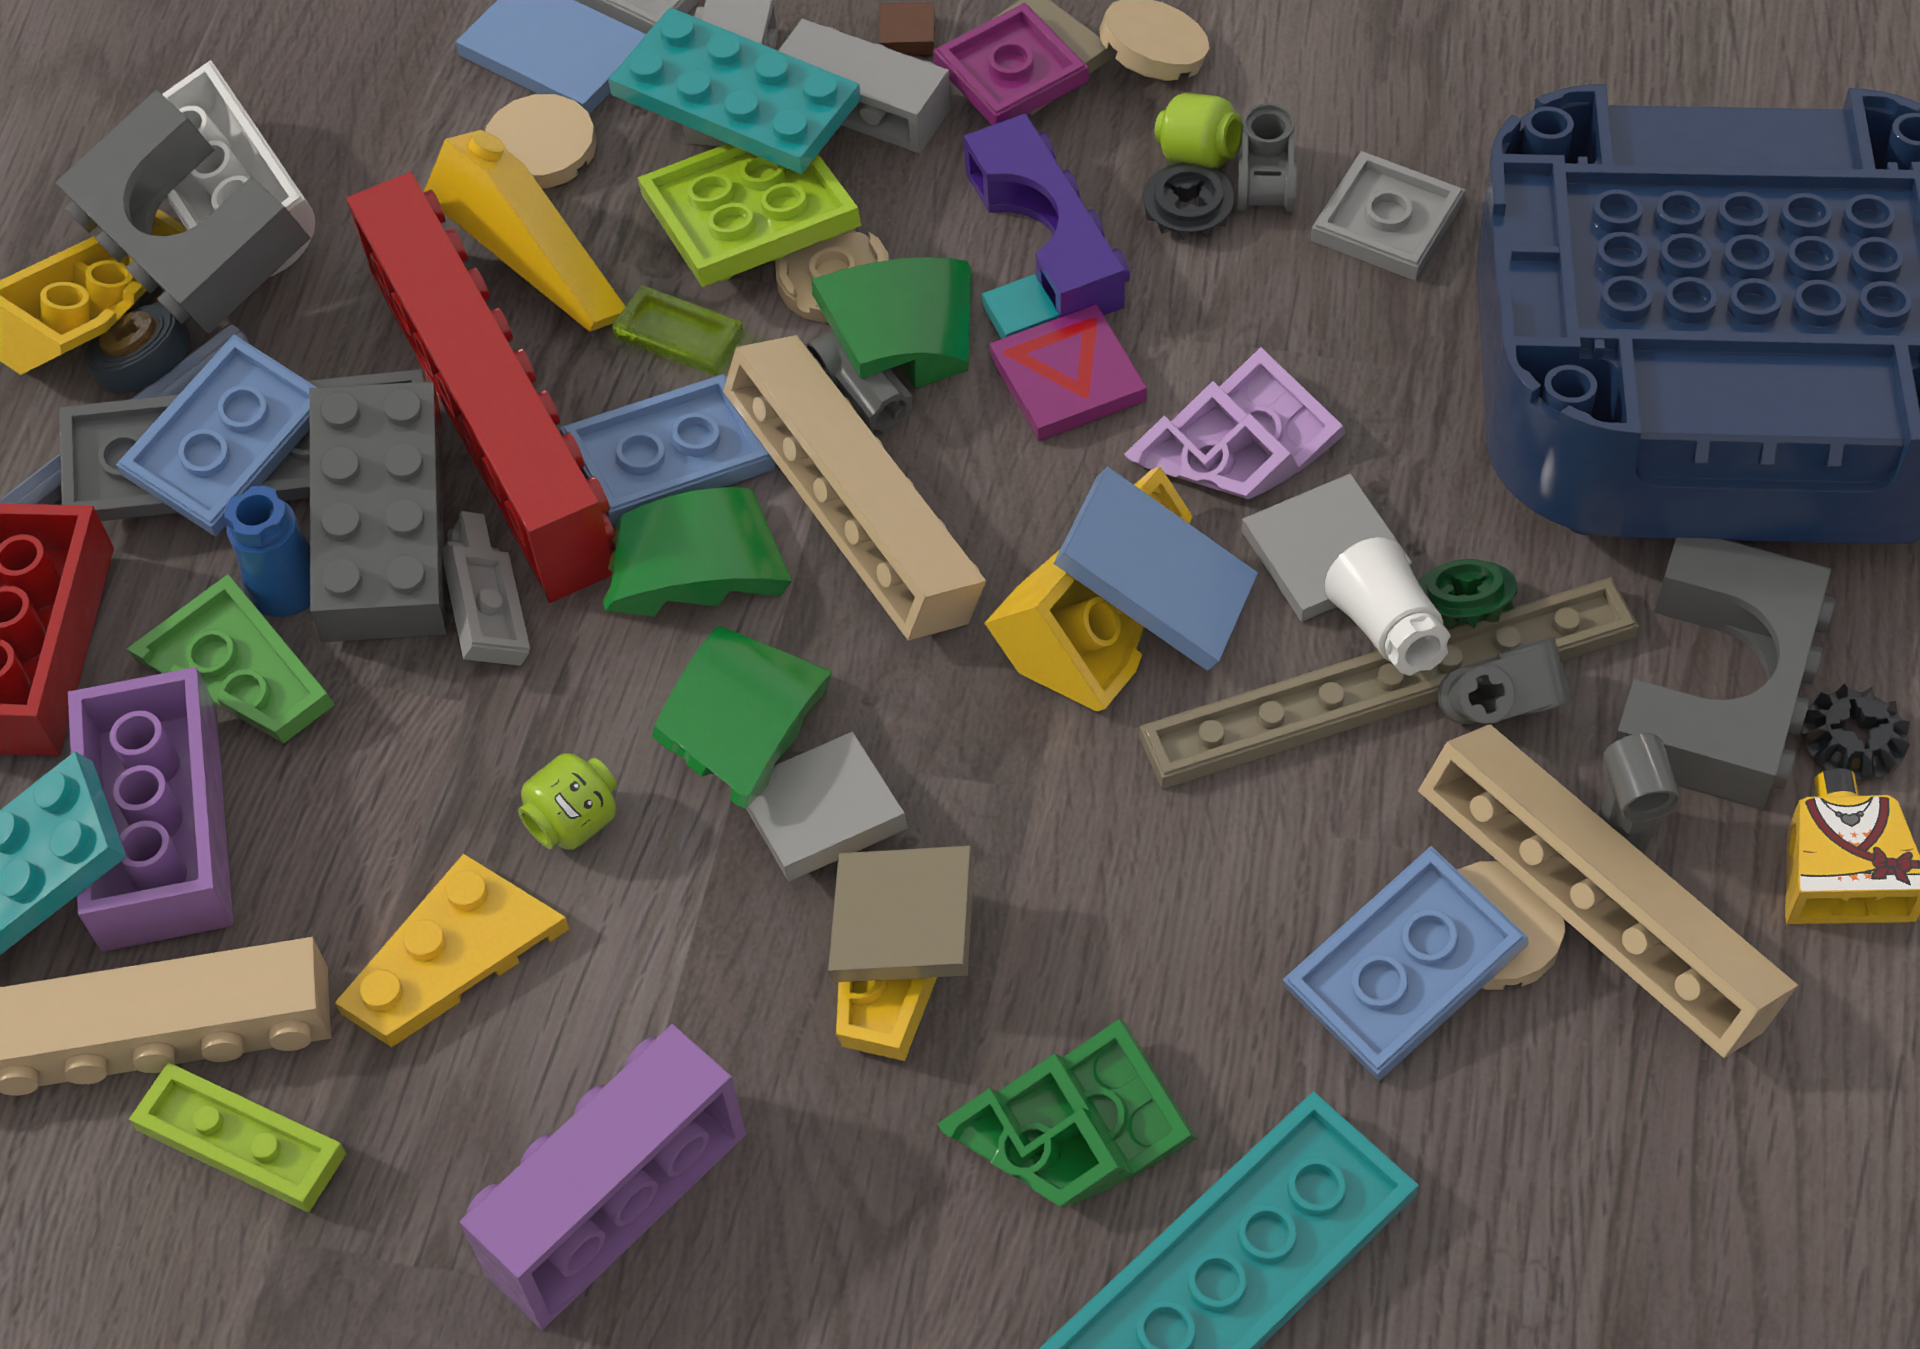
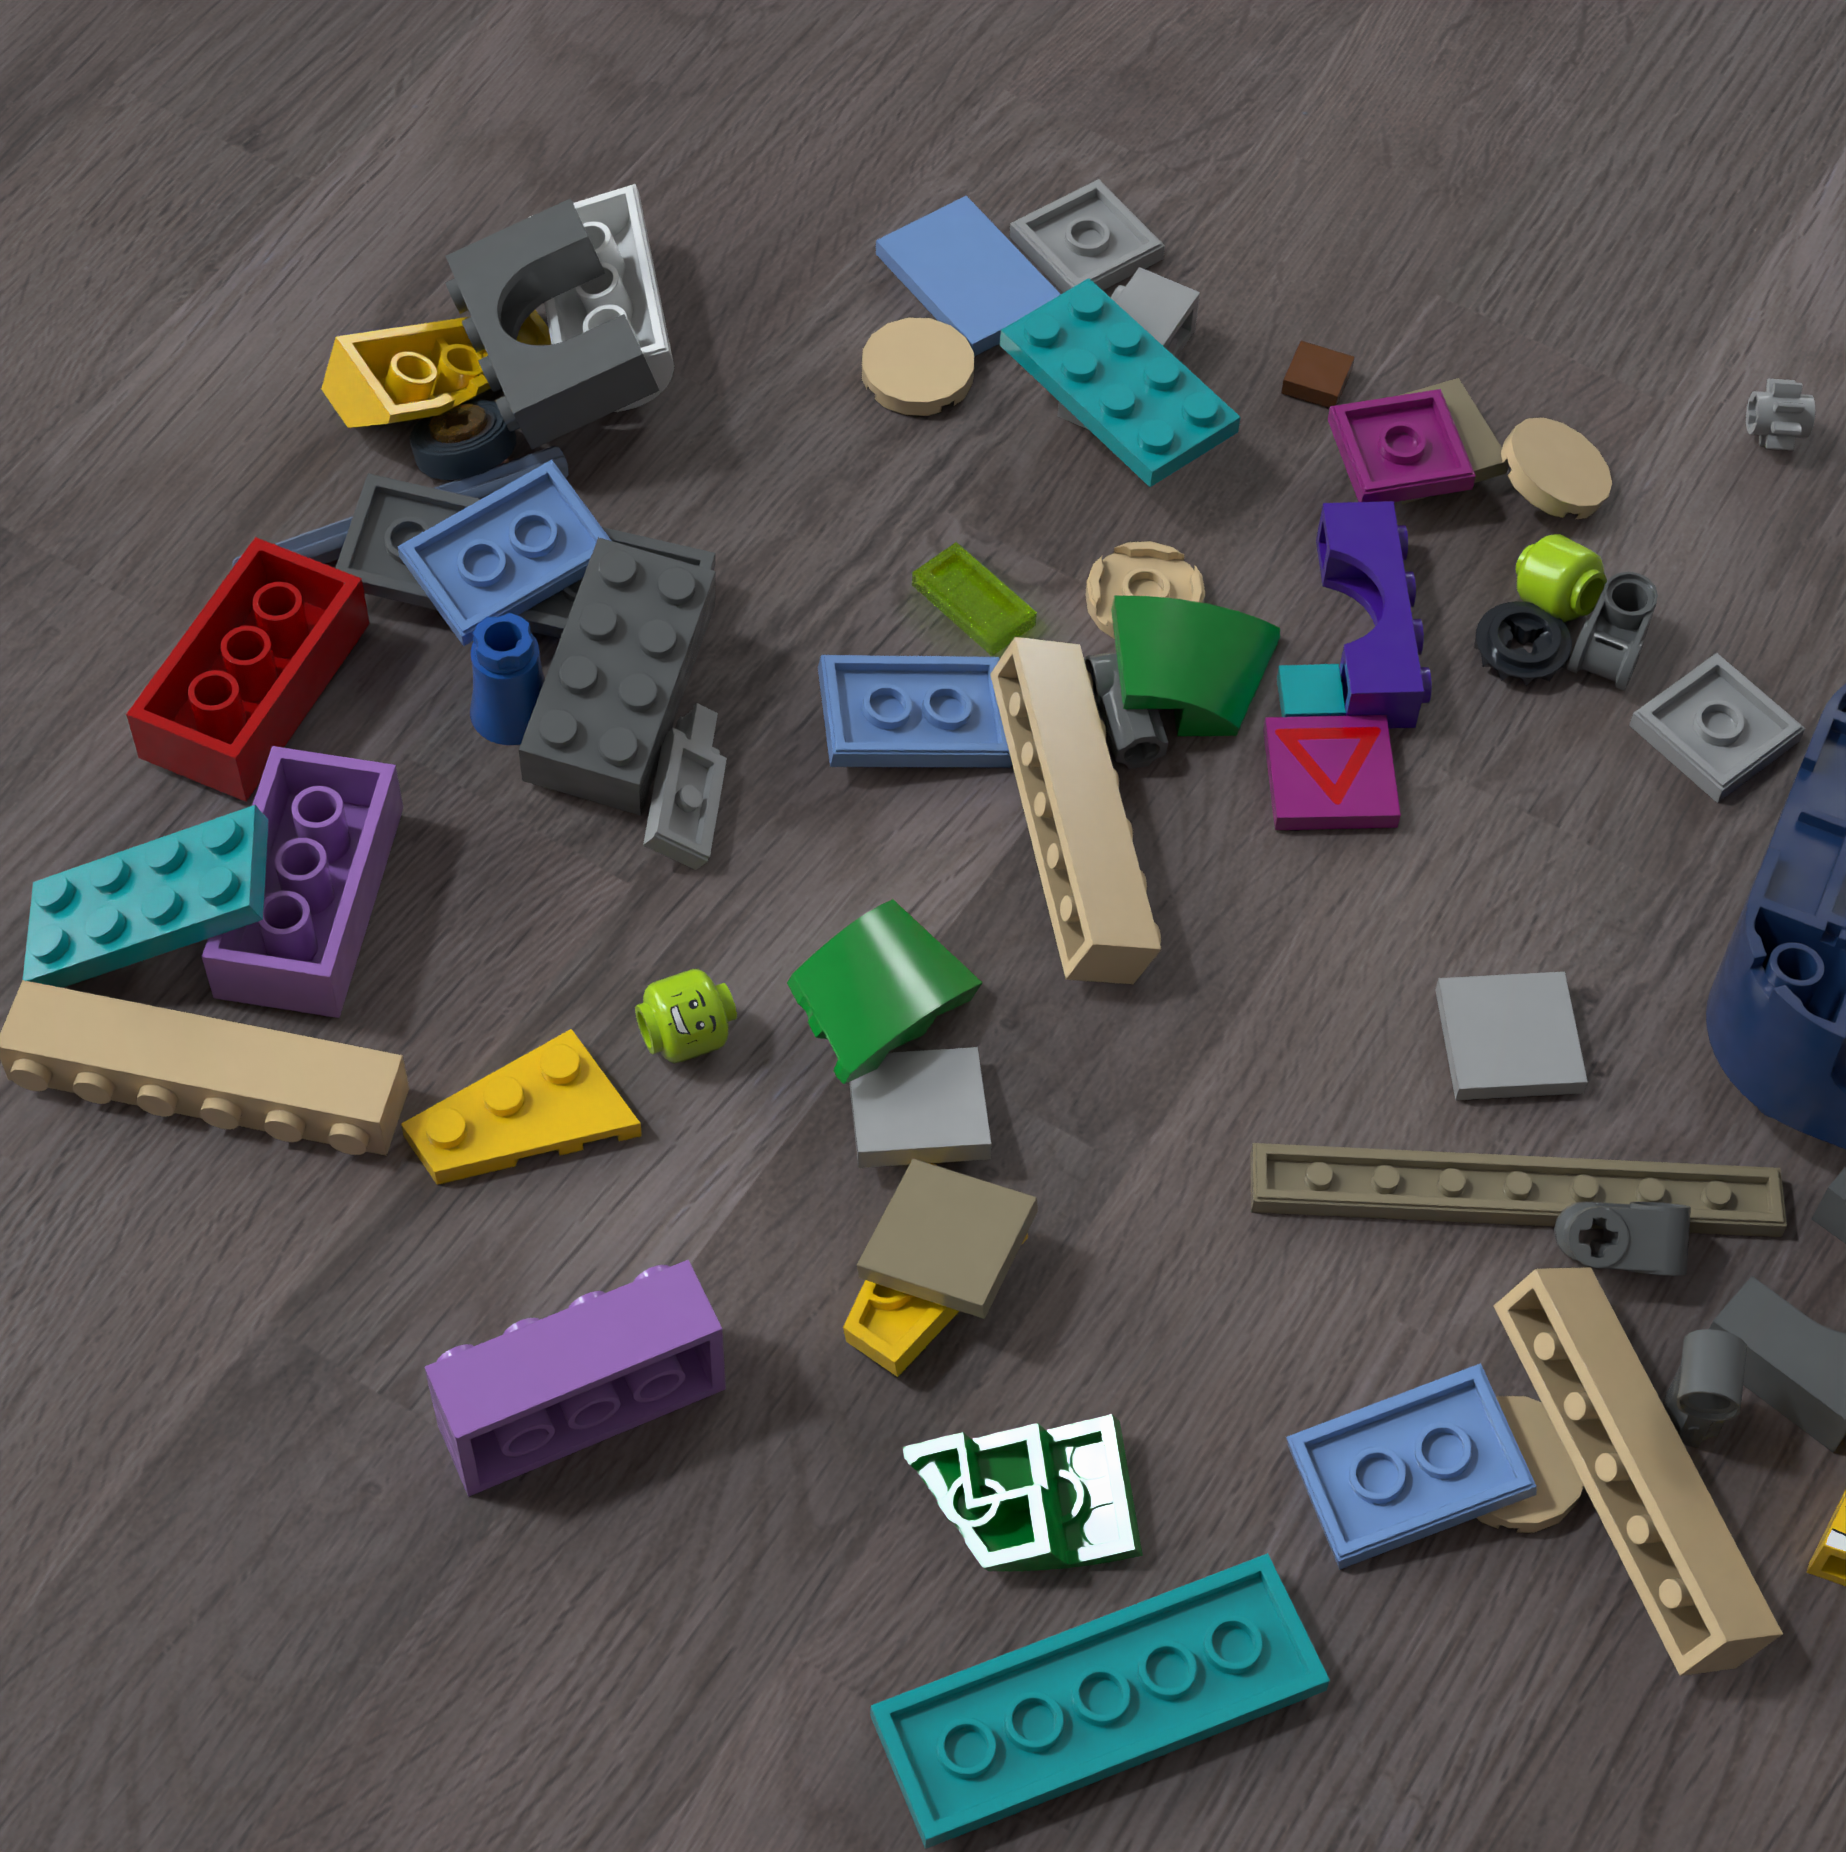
camera: 15 degrees right, 0 degrees up
(238, 1137) = (267, 1214): lime plate -> none
(239, 660) = (437, 771): bright green wing -> none
(485, 386) = (767, 591): red brick -> none
(512, 217) = (858, 438): yellow wedge -> none
(693, 552) = (898, 820): green slope -> none
(743, 211) = (1080, 503): lime plate -> none
(899, 94) = (1278, 437): light grey brick -> none
(1069, 634) = (1253, 1008): yellow wedge -> none
(1156, 568) = (1330, 997): medium blue tile -> none
(1243, 433) = (1475, 894): lavender slope -> none
(1388, 604) = (1542, 1114): white plant -> none
(1470, 591) = (1644, 1134): dark green gear -> none

